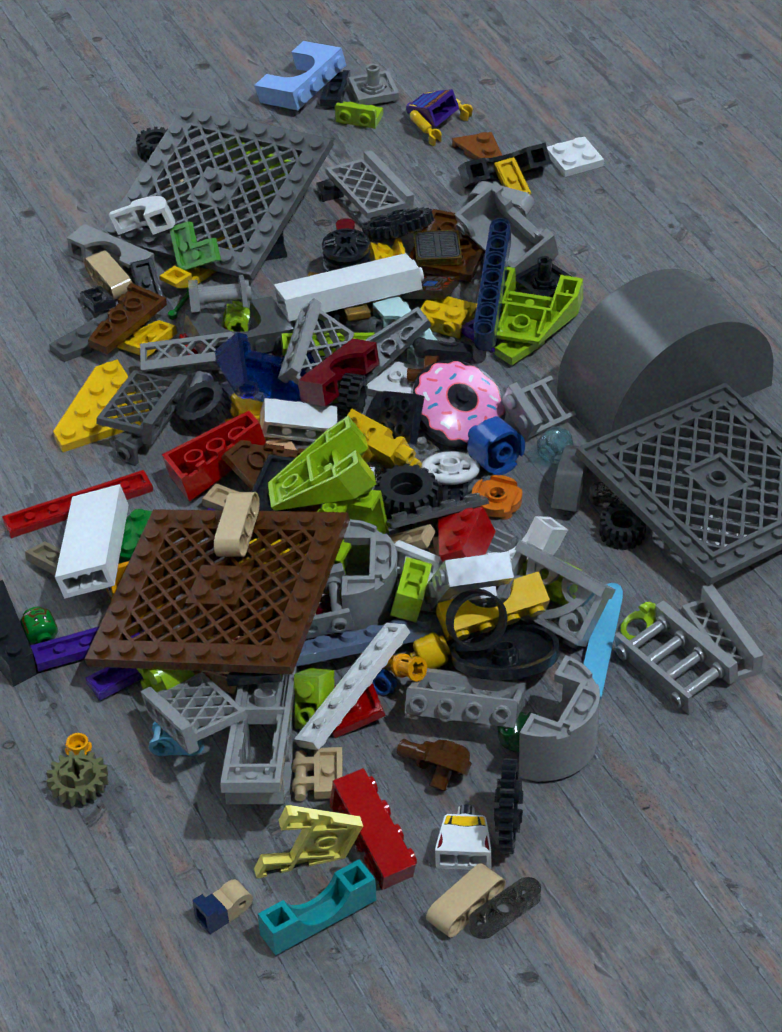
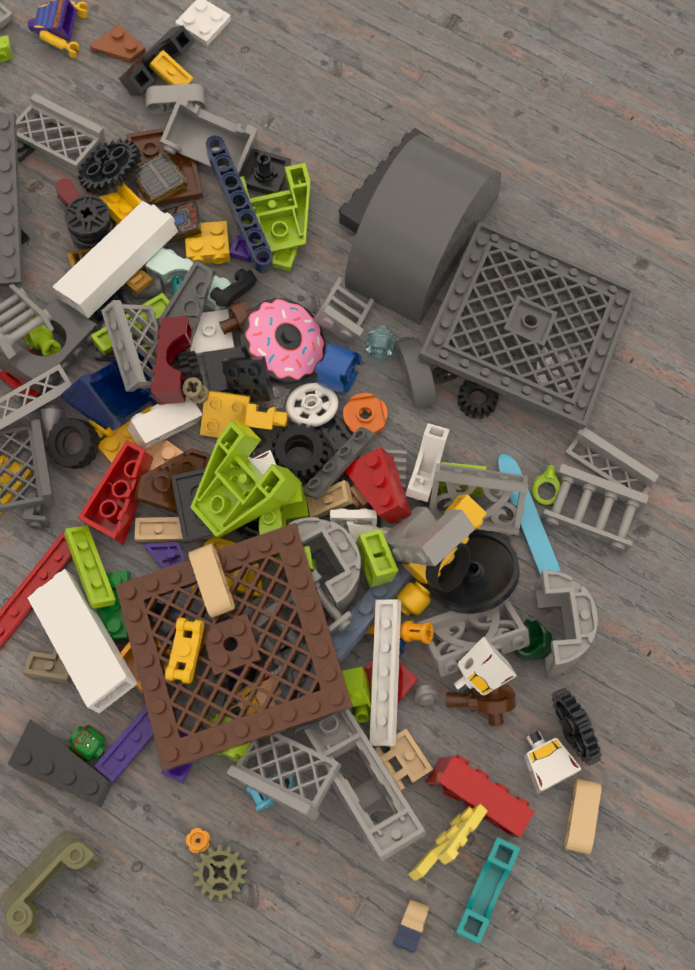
camera: 35 degrees left, 25 degrees up
(143, 495) = (89, 567): none -> lime plate
(173, 570) = (185, 650): none -> yellow plate
(341, 400) = (190, 392): none -> dark tan bush
(383, 732) = (425, 695): none -> light grey plate
(448, 715) = (483, 669): none -> white torso
(502, 919) = (623, 788): clear smoke beam -> none

